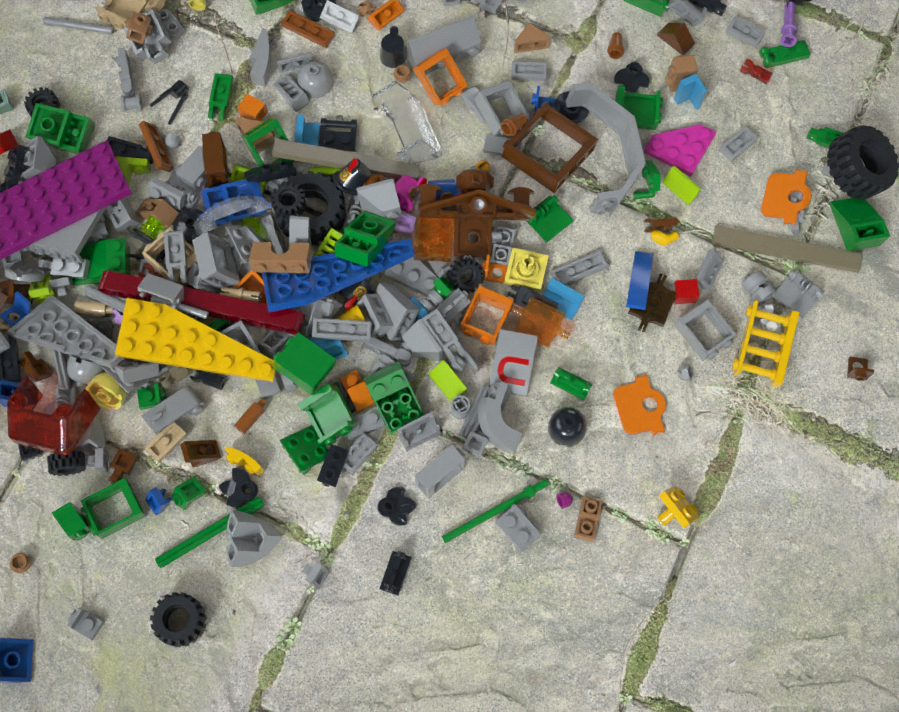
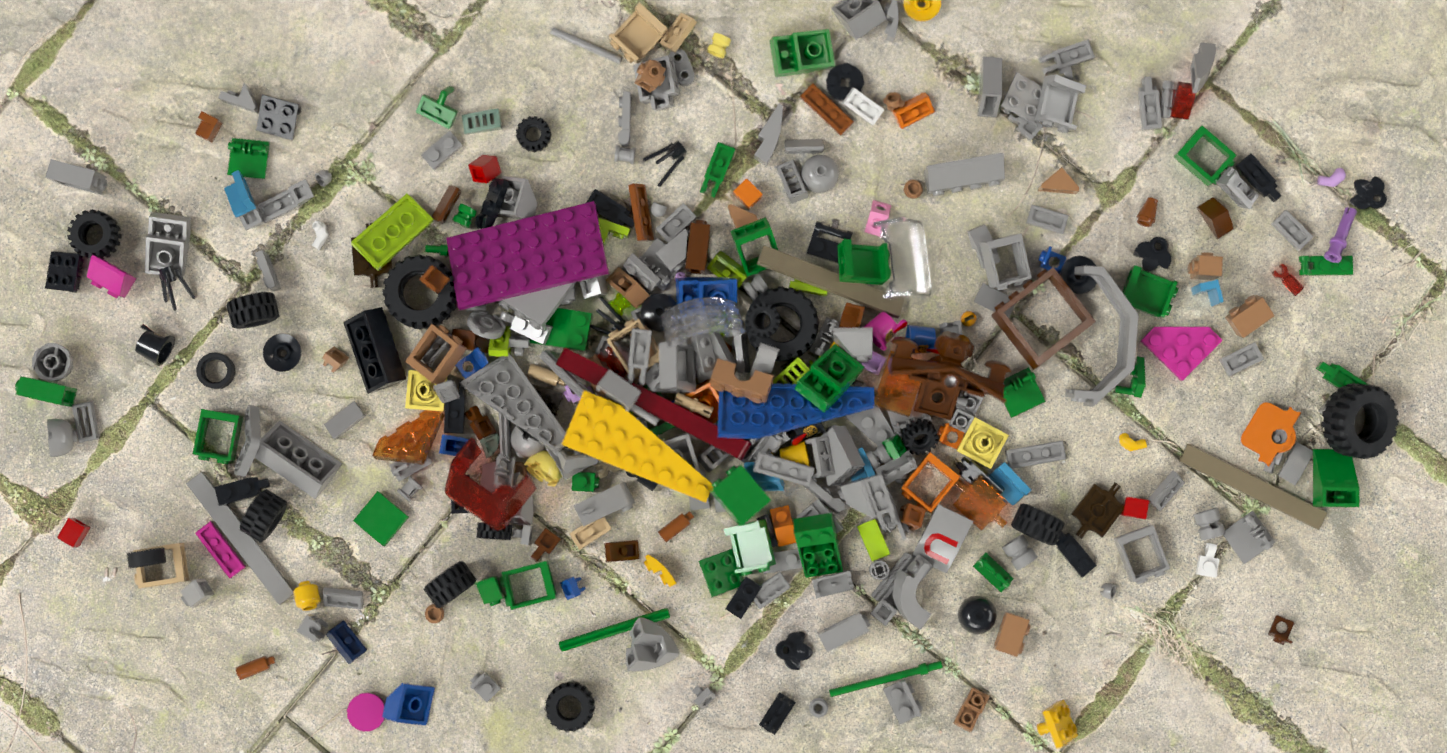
camera: 20 degrees right, 15 degrees up
(27, 524) = (450, 584): none -> black tyre
(49, 385) = (490, 445): none -> sand green tile
(60, 128) = (547, 170): green slope -> none
(188, 147) = (676, 223): none -> light grey plate
(188, 492) = (601, 587): green bracket -> none
(236, 488) = (646, 594): black plate -> none
(270, 172) = (751, 278): black hinge -> none
(306, 132) = (797, 238): dark azure panel -> none
(351, 176) = (831, 305): black hat -> none
(372, 140) = (863, 263): none -> green panel
(374, 108) = (877, 215): none -> bright pink bracket
(393, 49) = (909, 160): black hat -> none
(435, 549) = (821, 713): none -> light grey plate
(452, 68) = (944, 194): orange window -> none
(479, 346) = (912, 516): none -> dark orange panel
(513, 124) = (1011, 288): dark orange cone -> none
(564, 499) = (954, 685): magenta hinge -> none
(590, 356) = (1018, 550): none -> light grey wheel
(599, 323) = (1037, 524): none -> black tyre
(605, 434) = (1011, 634): none -> medium nougat brick
(631, 411) = (1044, 612): orange piece -> none
(640, 280) = (1091, 487): blue slope -> none
(641, 347) = (1075, 554): none -> black hinge
(665, 224) = (1135, 429): reddish brown plate -> none
(681, 185) = (1166, 391): lime slope -> none
(733, 105) = (1249, 316): none -> medium nougat brick
(784, 339) = (1207, 600): yellow fence -> none
(818, 219) = (1295, 463): none -> light grey slope

